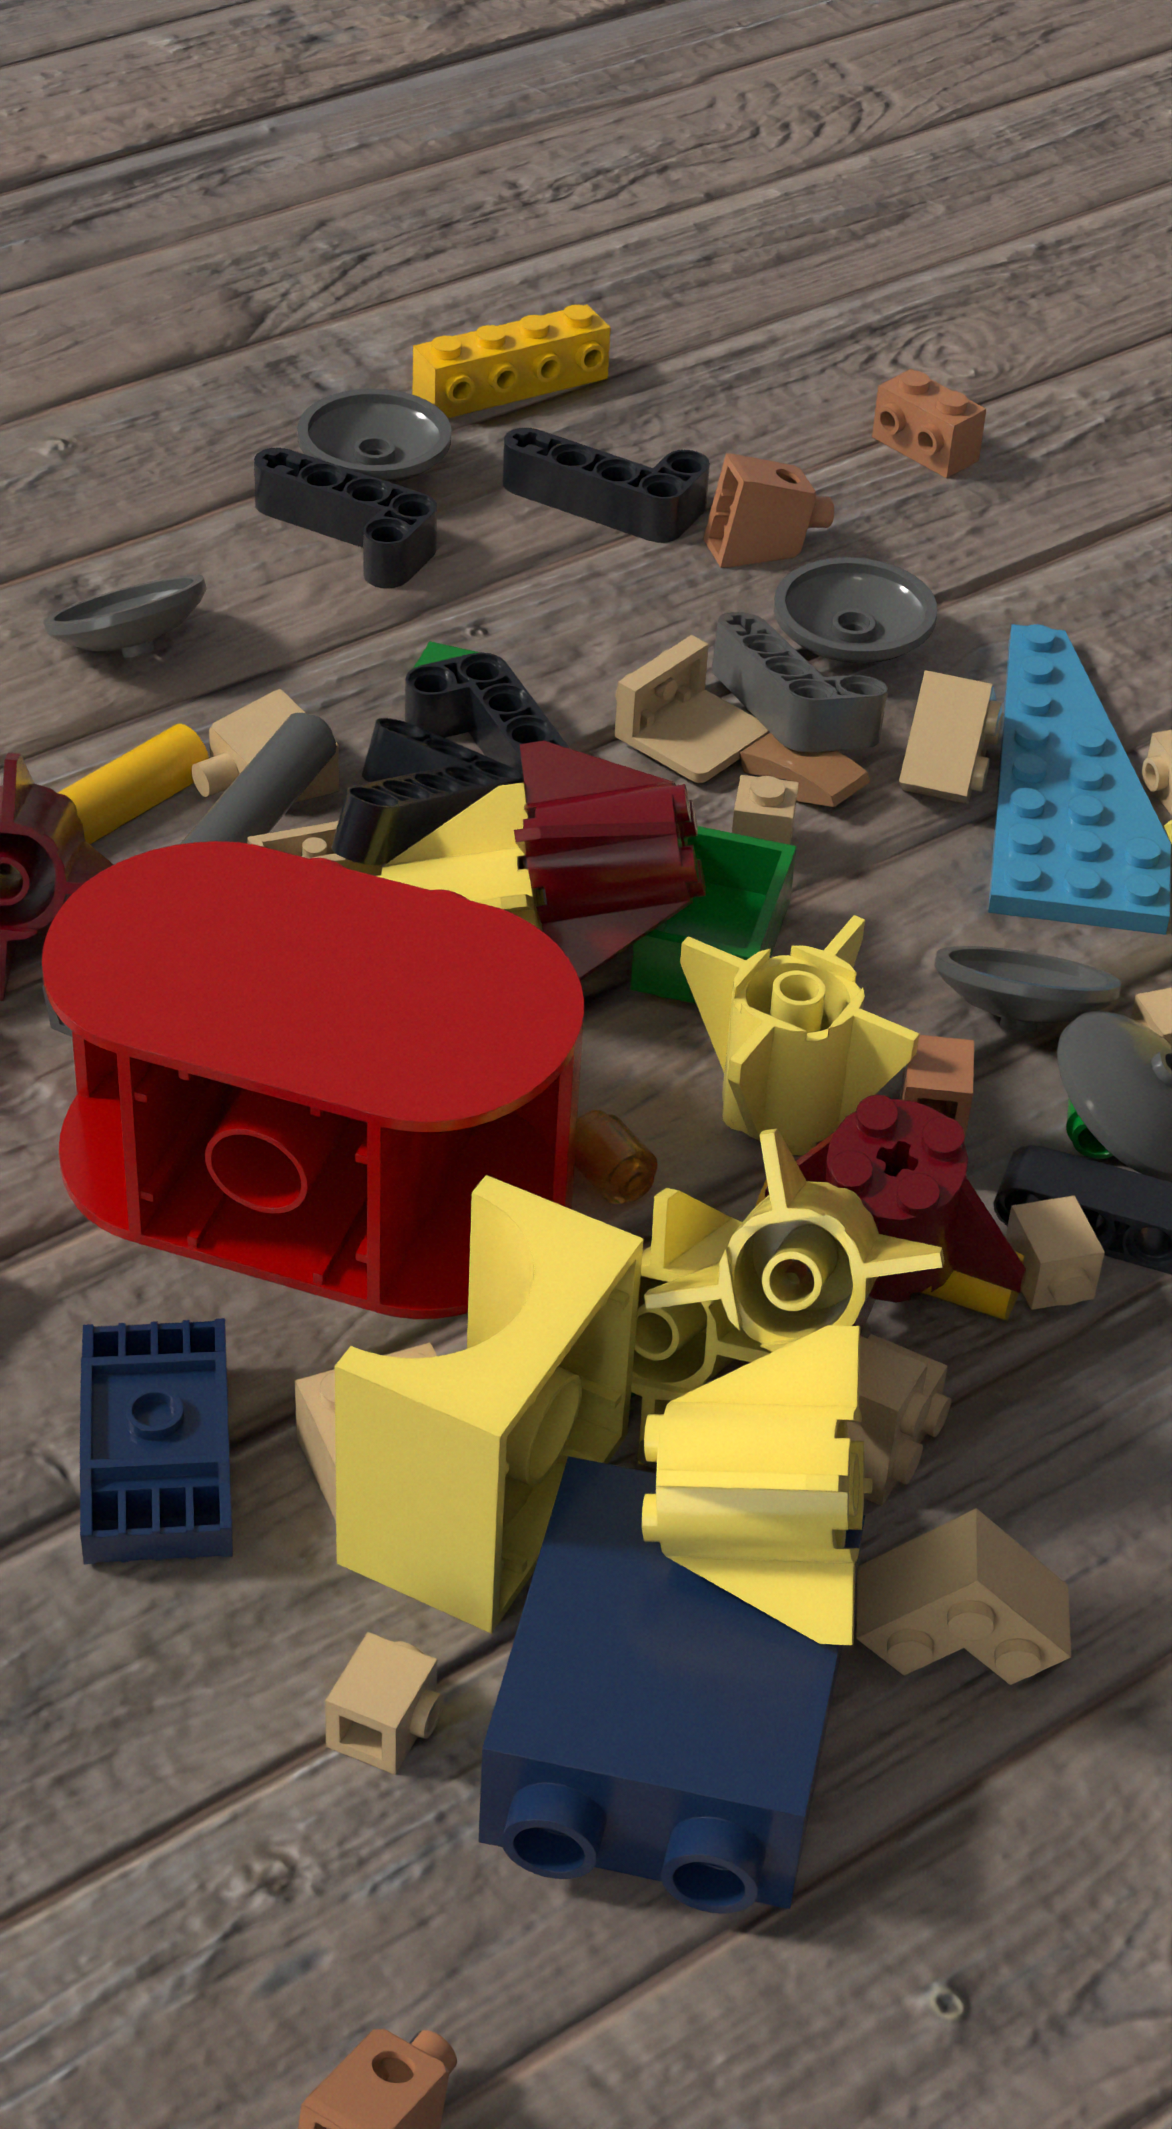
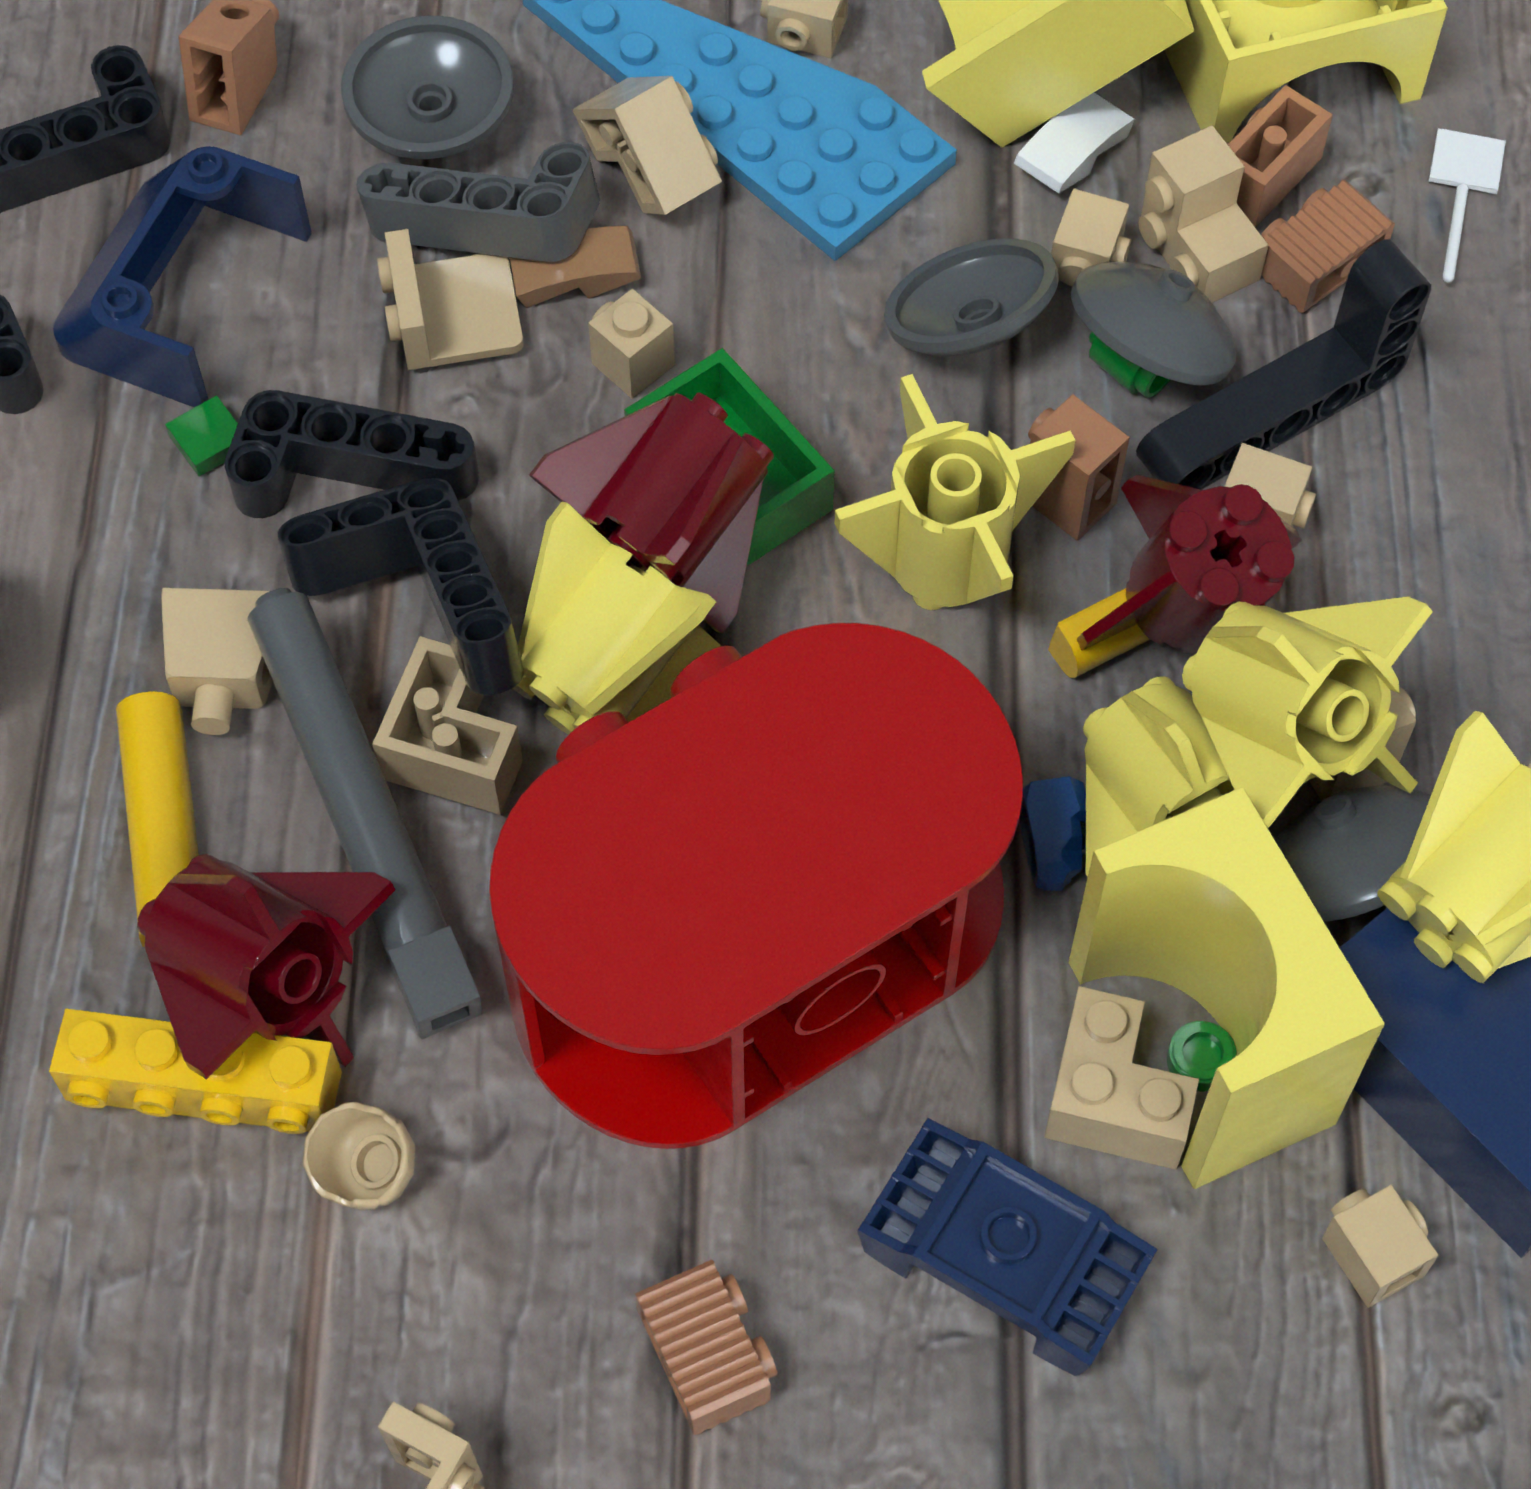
camera: 50 degrees left, 20 degrees up
(561, 556) = (113, 303): none -> dark blue windscreen

